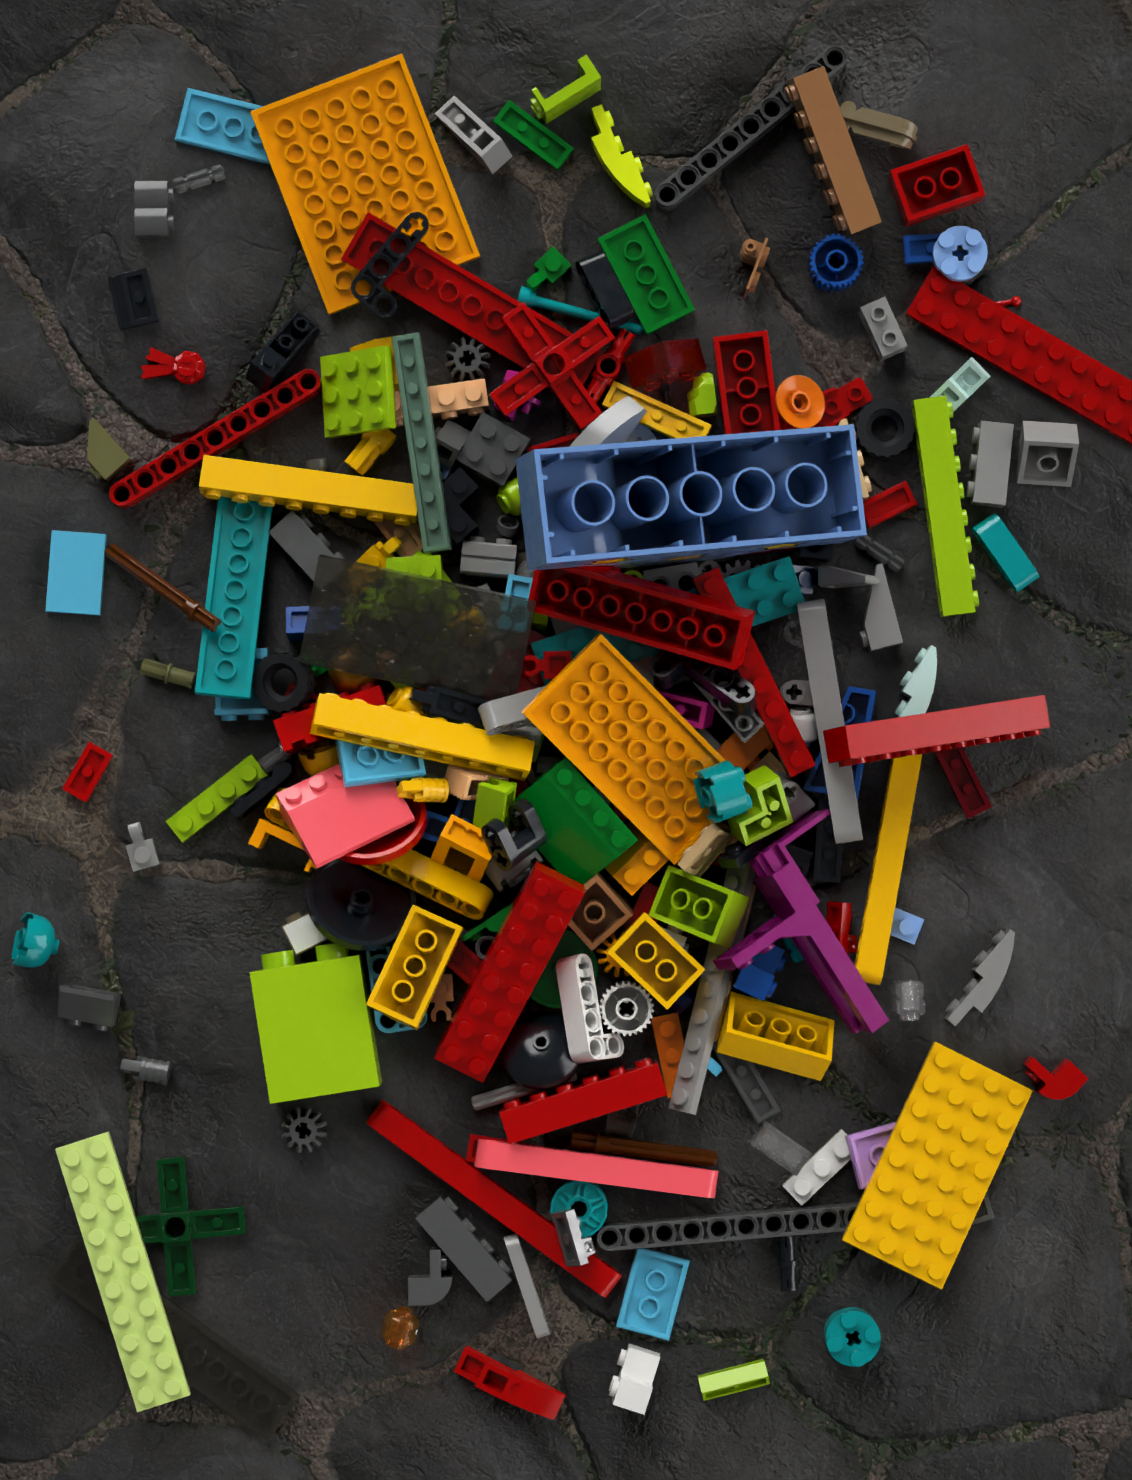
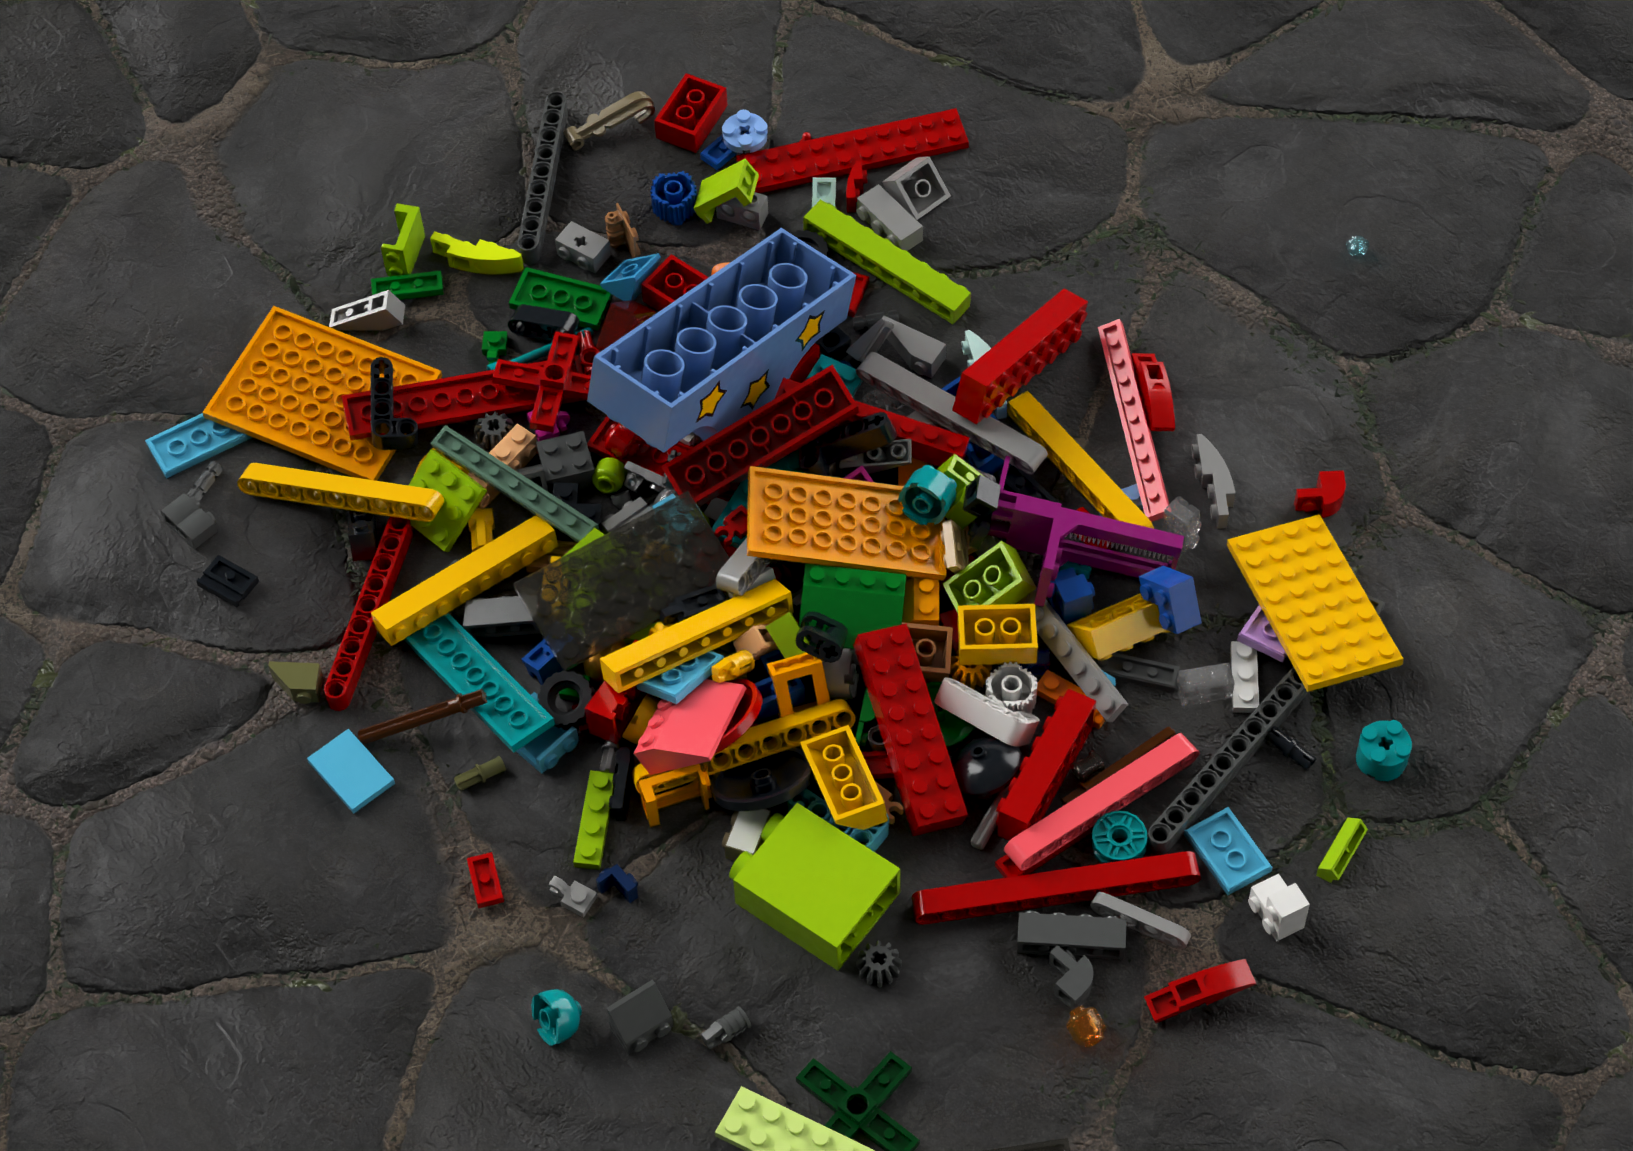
camera: 45 degrees left, 30 degrees down
(185, 877) = (615, 876): none -> dark blue bracket
(186, 367) = (305, 589): red piece -> none
(286, 307) = (341, 492): none -> yellow beam
(573, 1247) = (1133, 850): flat silver hinge -> none
(713, 223) = (583, 247): none -> light grey brick
(718, 312) = (629, 275): none -> dark azure slope
(760, 837) = (981, 497): none -> black brick
(821, 1063) = (1175, 598): none -> blue brick
(833, 151) = (606, 135): medium nougat brick -> none
(878, 306) = (734, 181): none -> lime panel
(963, 781) = (1067, 389): dark red plate -> none
(980, 861) = (1134, 420): none -> coral plate
(1005, 552) = (953, 255): teal beam -> none
(1007, 394) = (855, 185): none -> red slope
(1025, 852) = (1154, 391): none -> red slope

